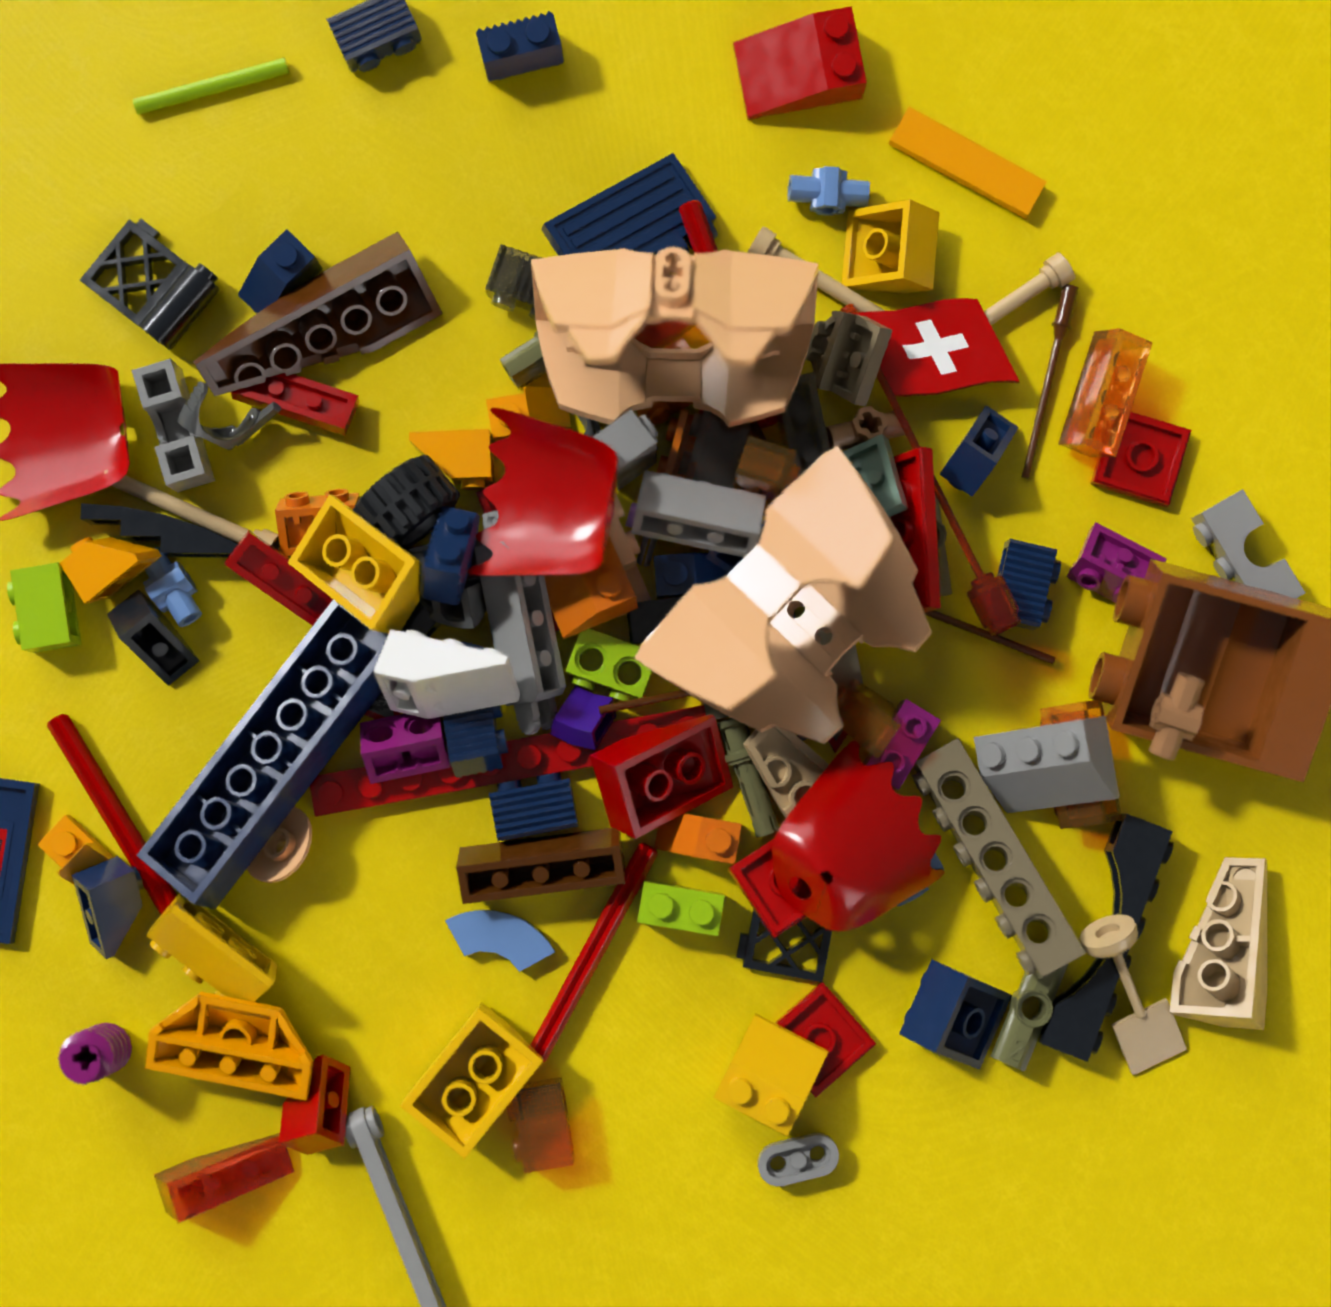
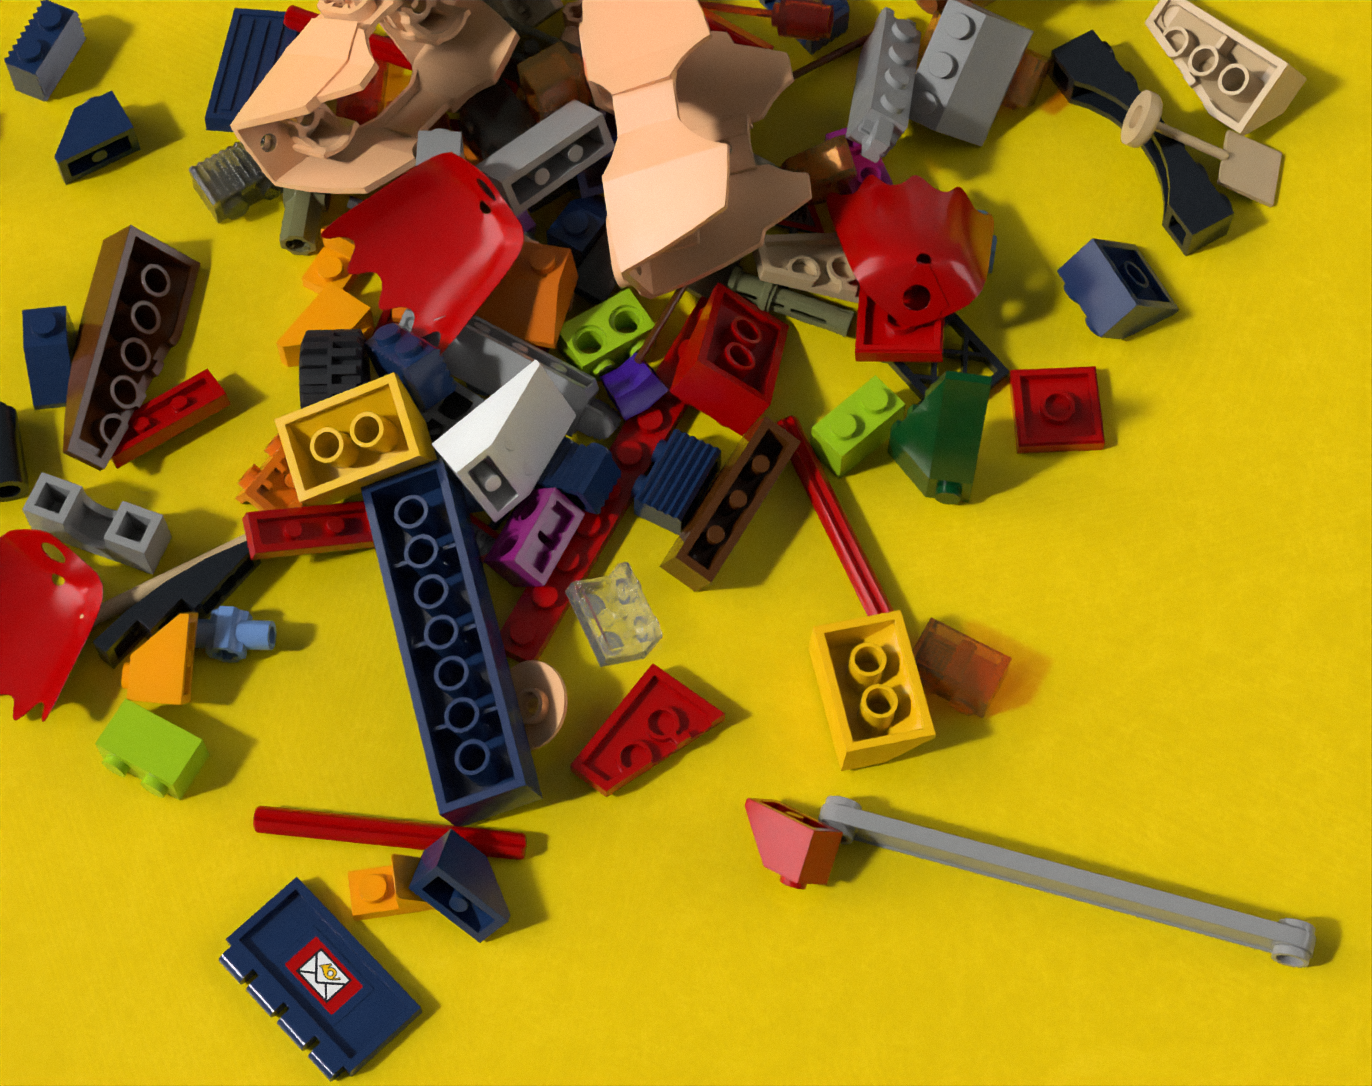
camera: 50 degrees left, 20 degrees down
(95, 1053) = (585, 987): magenta piece -> none
(152, 637) = (258, 678): black slope -> none
(211, 951) = (579, 816): yellow slope -> none
(221, 1176) = (786, 973): clear red slope -> none
(228, 436) = (108, 496): dark grey helmet -> none
(232, 1045) = (678, 856): light orange wedge -> none
(325, 936) = (643, 731): none -> red wing
(392, 848) = (615, 616): none -> clear bracket
(479, 147) = (95, 138): none -> dark blue slope
(500, 934) = (762, 590): medium blue tile -> none
(700, 838) = (812, 371): orange slope -> none
(700, 993) = (943, 436): none -> dark green wedge
(771, 1074) = (1057, 454): yellow slope -> none
(798, 1163) = (1145, 494): light grey plate -> none
(954, 764) = (1029, 149): dark tan brick -> none
(983, 712) = (884, 85): none -> light grey hinge
(1020, 1033) = (1144, 212): olive piece -> none

